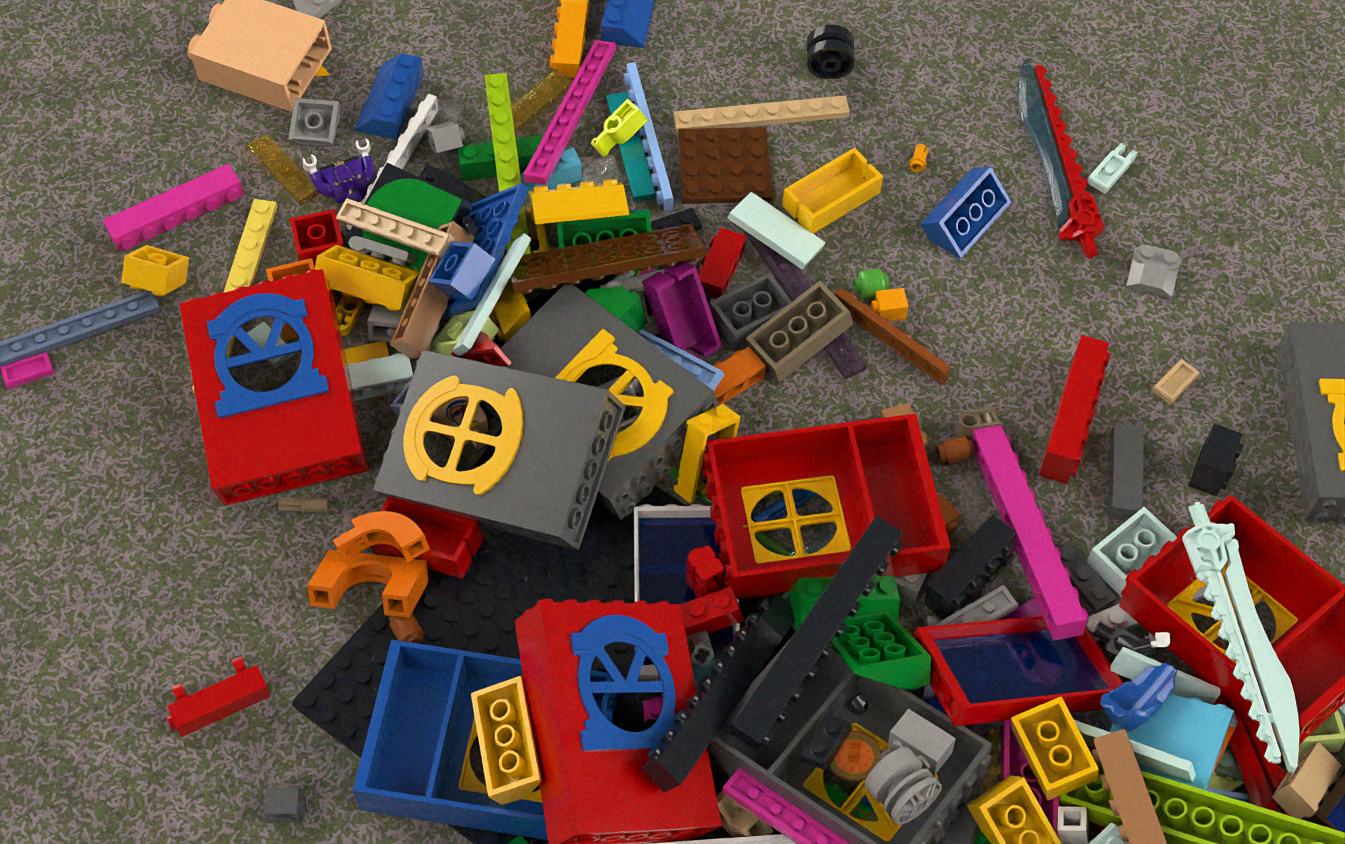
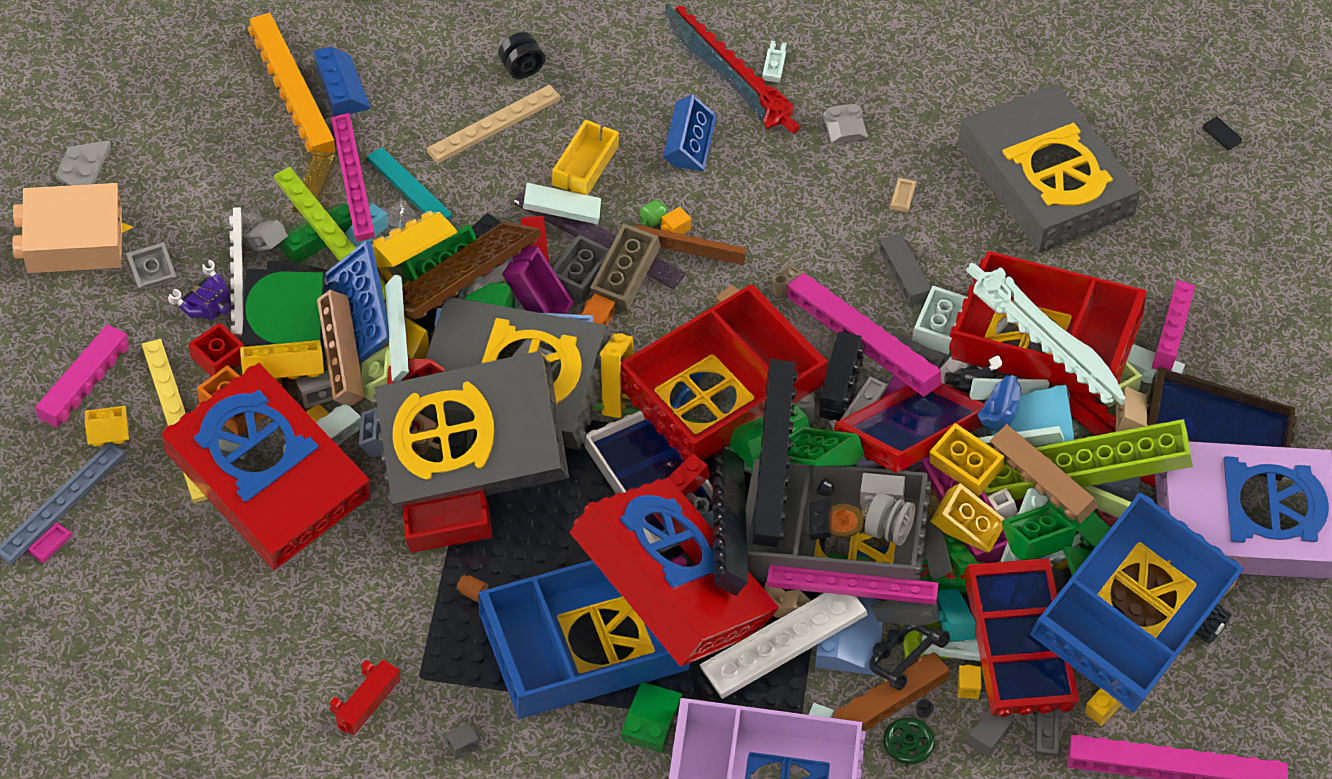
camera: 30 degrees left, 5 degrees down
(283, 169) = (149, 312): clear yellow plate -> none
(303, 504) = (336, 542): dark tan axle -> none
(381, 250) = (279, 336): light grey hinge -> none
(382, 528) = (421, 524): orange arch -> none
(391, 96) = (196, 223): blue slope -> none
(394, 228) = (284, 314): tan tile -> none
(403, 580) = (445, 554): orange arch -> none
(462, 270) = (362, 321): blue brick -> none
(470, 225) = (339, 288): black piece -> none
(506, 741) = (610, 612): yellow slope -> none
(619, 127) = (397, 174): neon yellow piece -> none
(649, 143) = (421, 173): light blue plate -> none
(704, 571) = (667, 453): red brick -> none
(724, 164) = (489, 172): reddish brown plate -> none
(918, 162) = (633, 112): light orange pin -> none
(955, 450) = (783, 302): dark orange brick -> none
(1075, 410) = (848, 241): red brick -> none
(1216, 460) = (961, 235): black brick -> none

